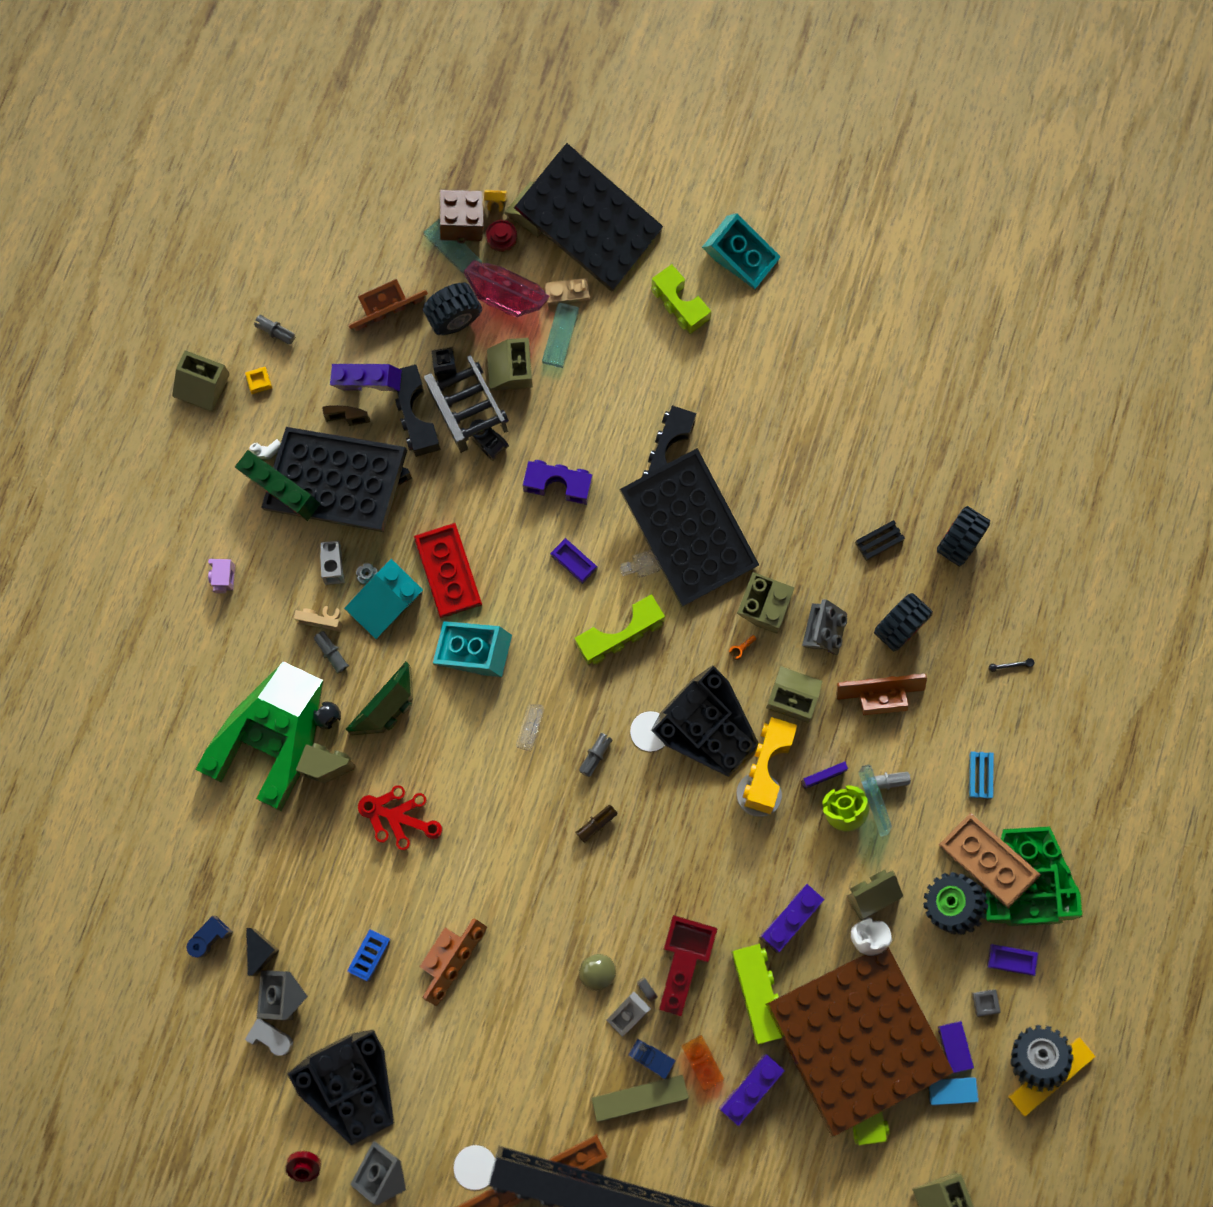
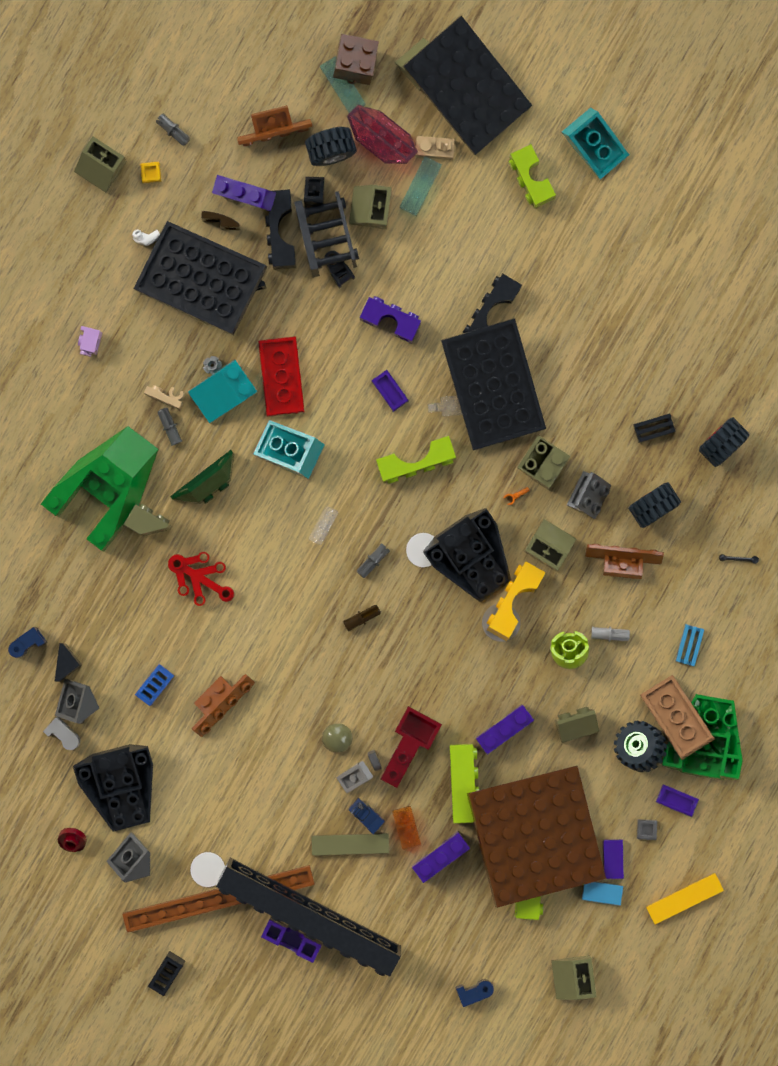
camera: 15 degrees right, 10 degrees up
(277, 485) = (151, 274): dark green brick -> none
(326, 715) = (156, 480): black piece -> none
(331, 563) = (184, 349): light grey leg -> none
(495, 196) = (389, 45): yellow tile -> none
(501, 235) = (387, 84): dark red plate -> none
(824, 775) = (559, 618): dark purple tile -> none
(871, 936) = (565, 757): white hair -> none
(875, 800) = (595, 648): clear light blue tile -> none
(1041, 1058) = (678, 882): black wheel -> none

